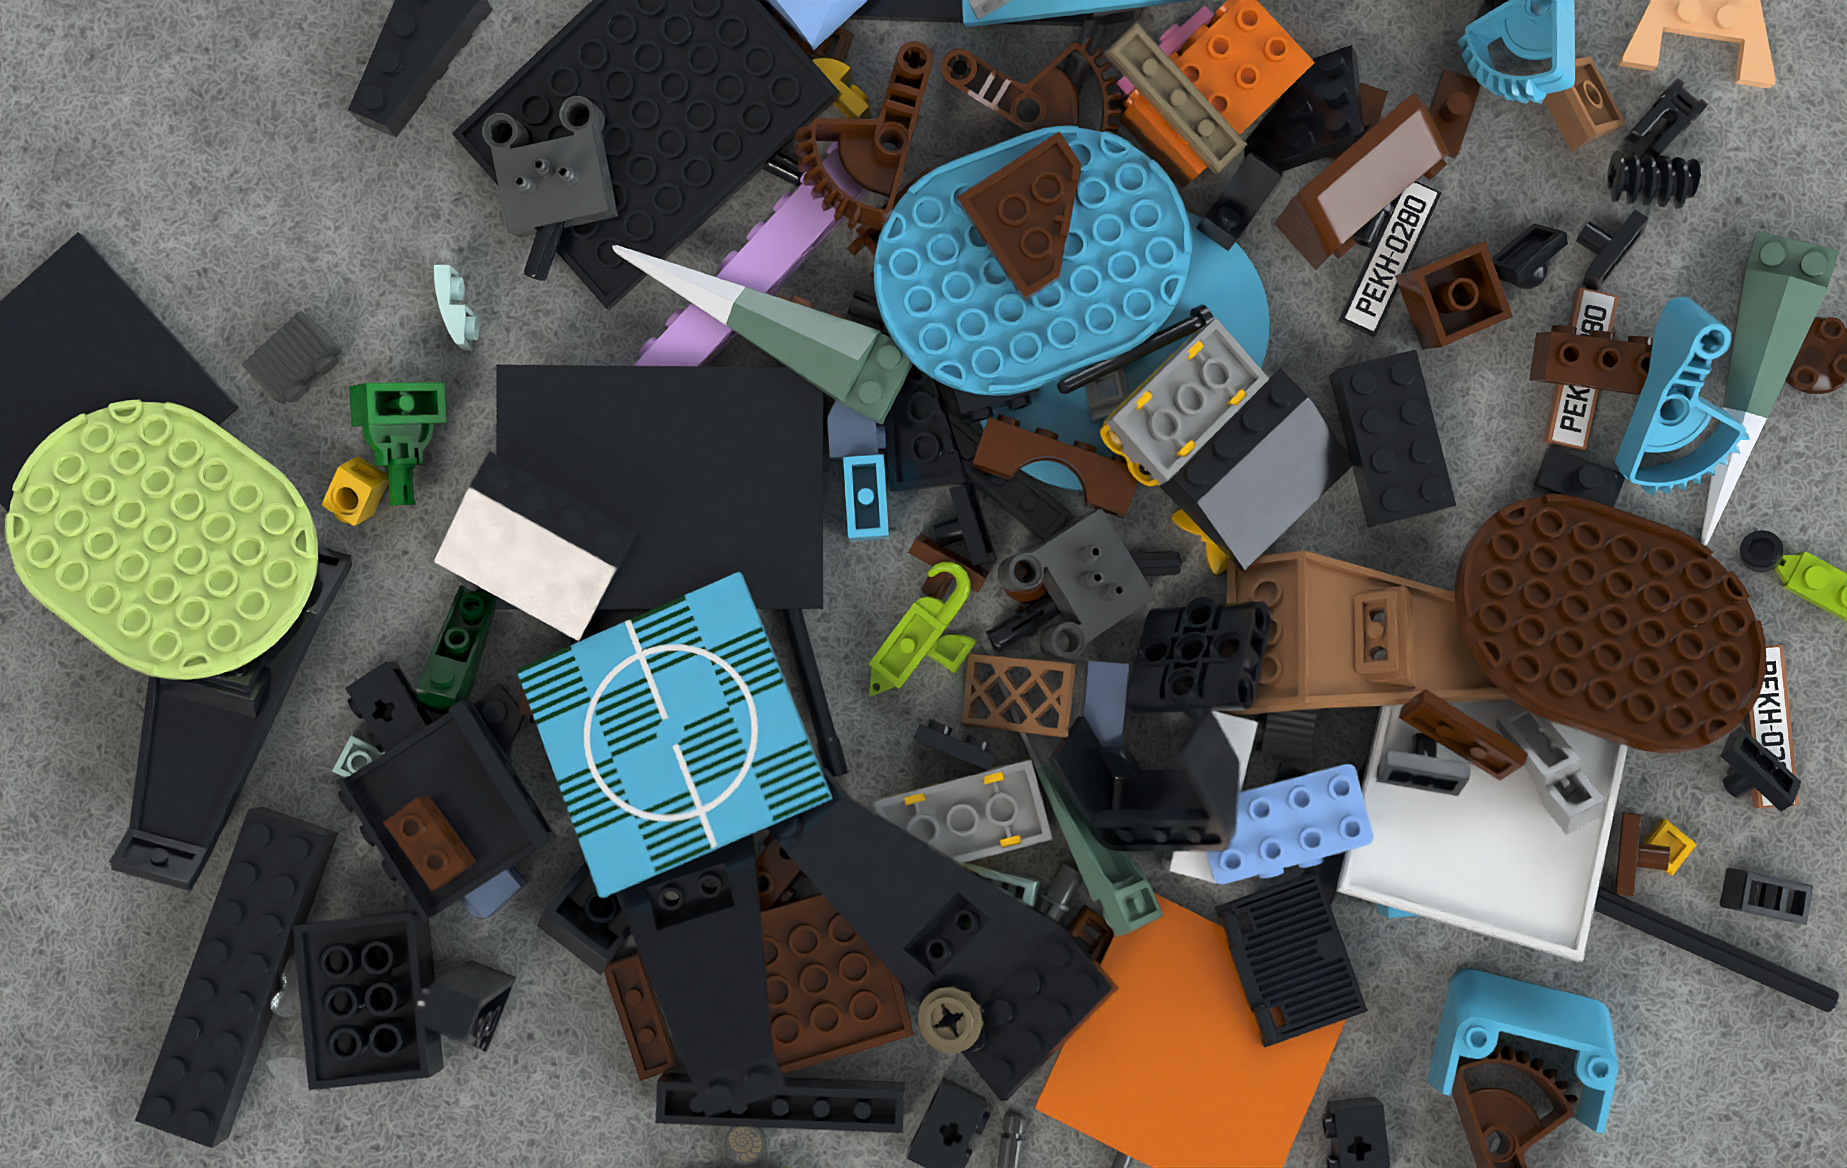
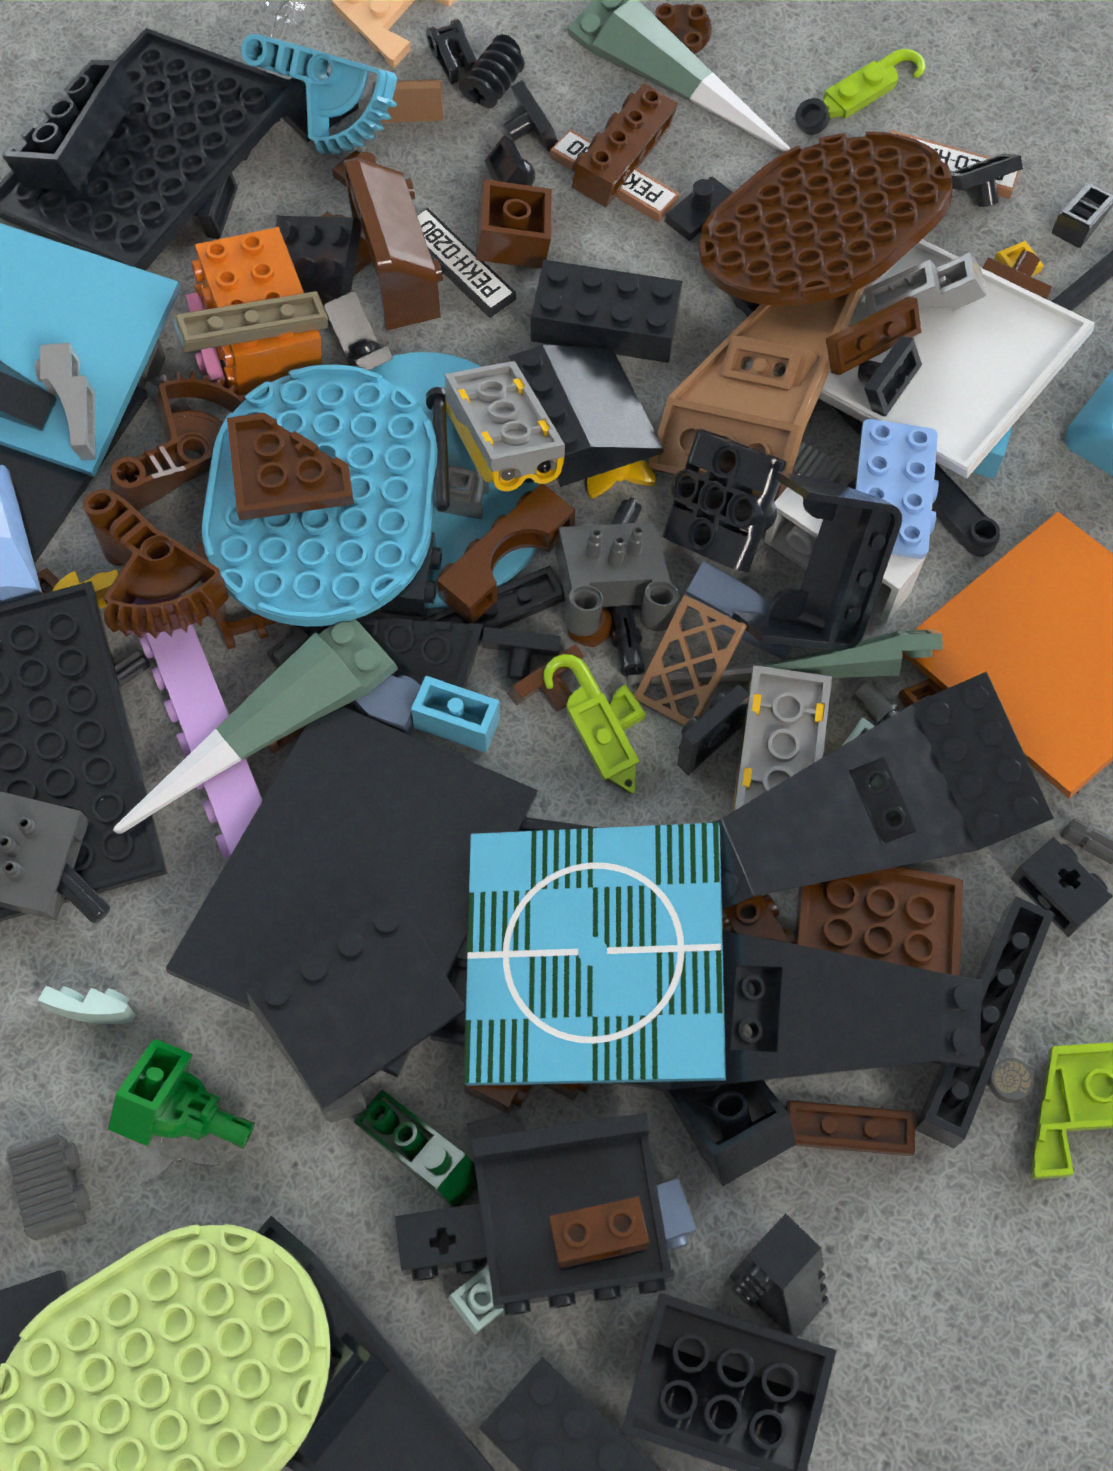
camera: 70 degrees left, 20 degrees down
(365, 481) = (209, 1159): yellow brick -> none
(945, 1037) = (974, 817): dark tan gear -> none
(1291, 958) = (1010, 544): black window -> none
(1679, 361) = (673, 112): medium azure arm -> none

